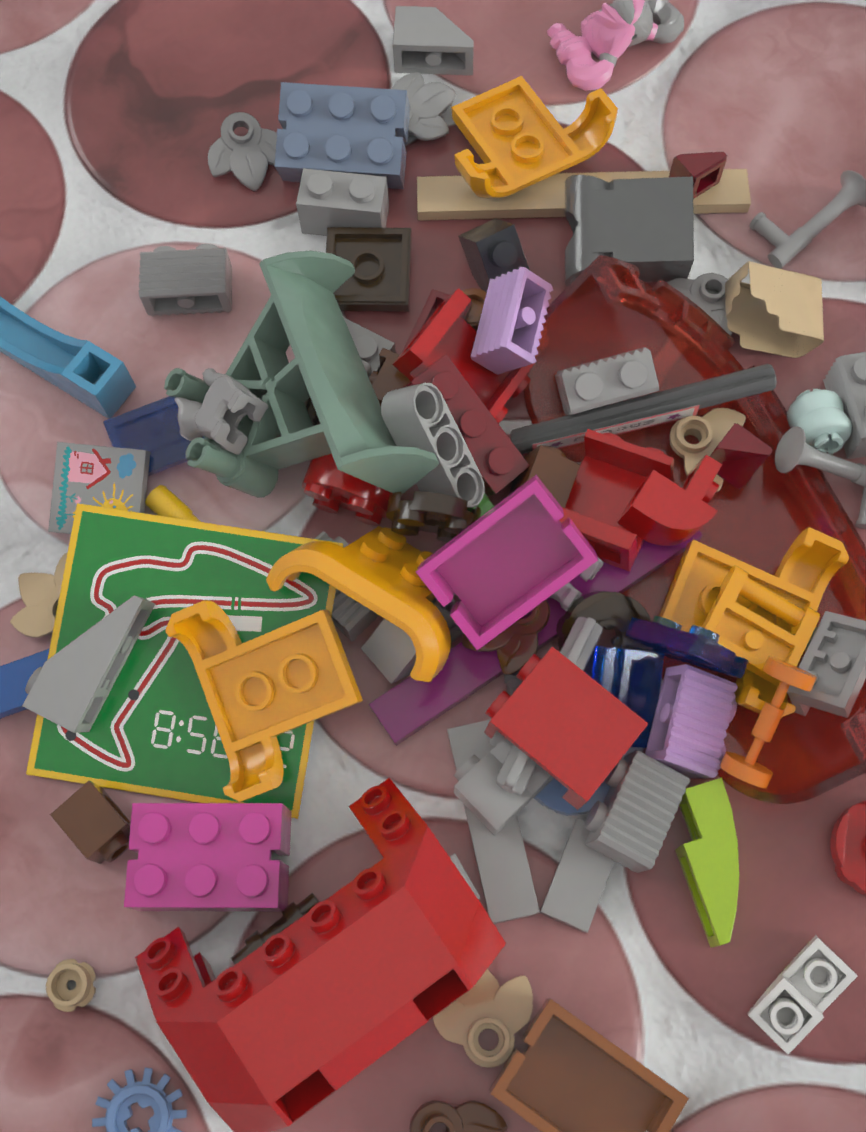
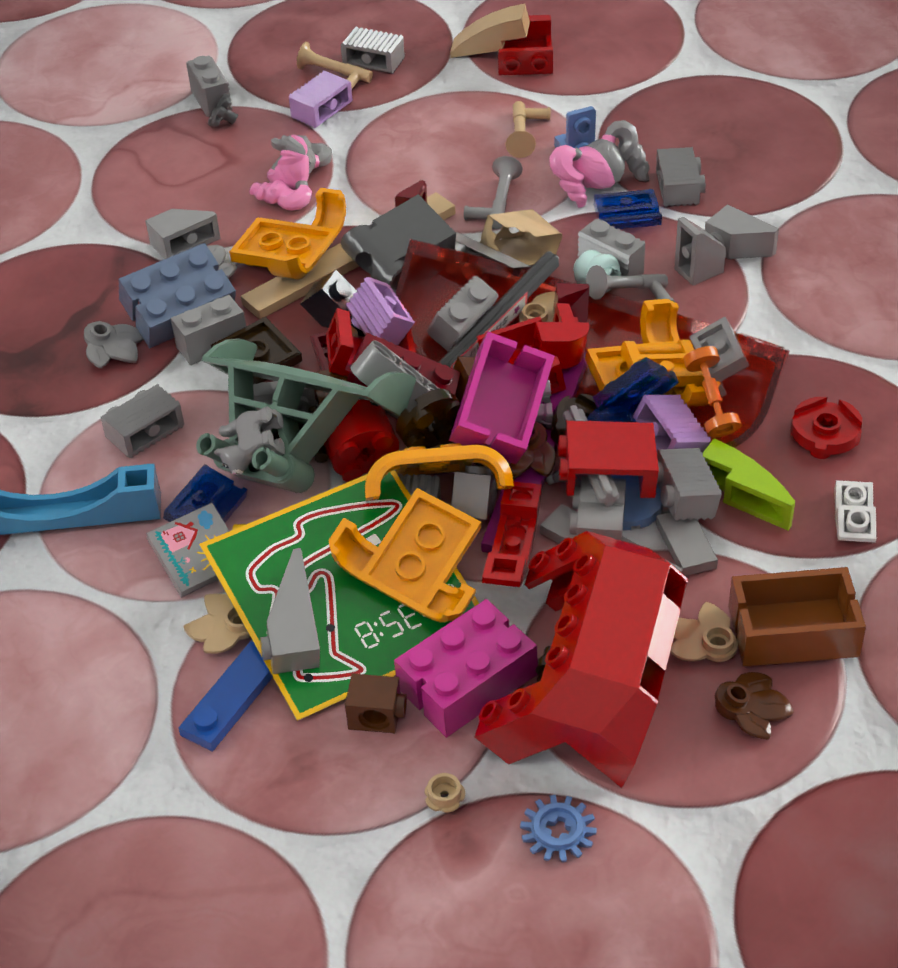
camera: 40 degrees left, 25 degrees down
(388, 739) = (514, 535): none -> red slope
(713, 305) = (492, 253): none -> light grey sticker

